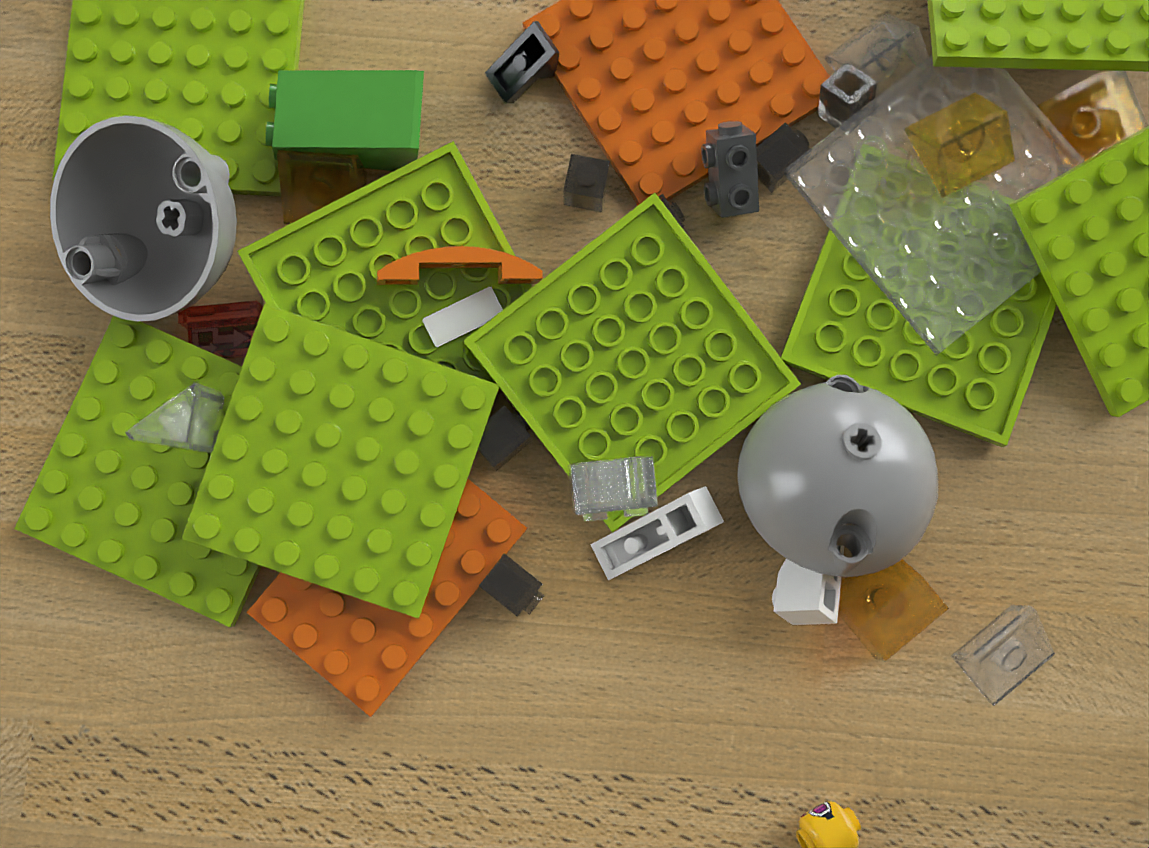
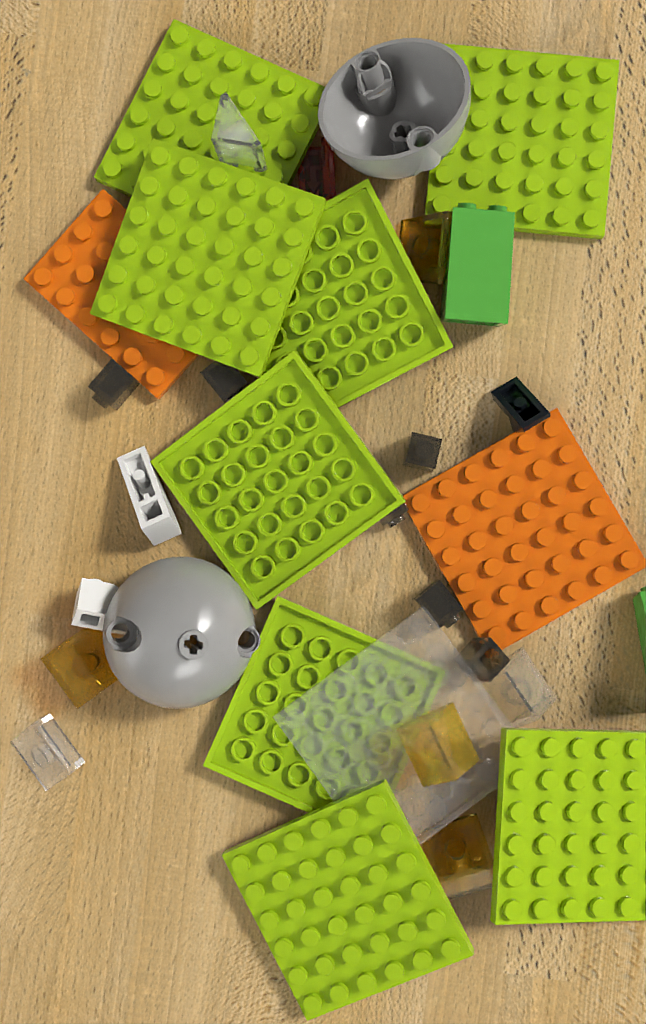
camera: 90 degrees right, 5 degrees up
(462, 316) = (316, 352): white sticker -> none
(510, 268) = (349, 308): orange slope -> none
(613, 486) = (179, 460): clear brick -> none
(732, 169) = (425, 565): dark grey brick -> none

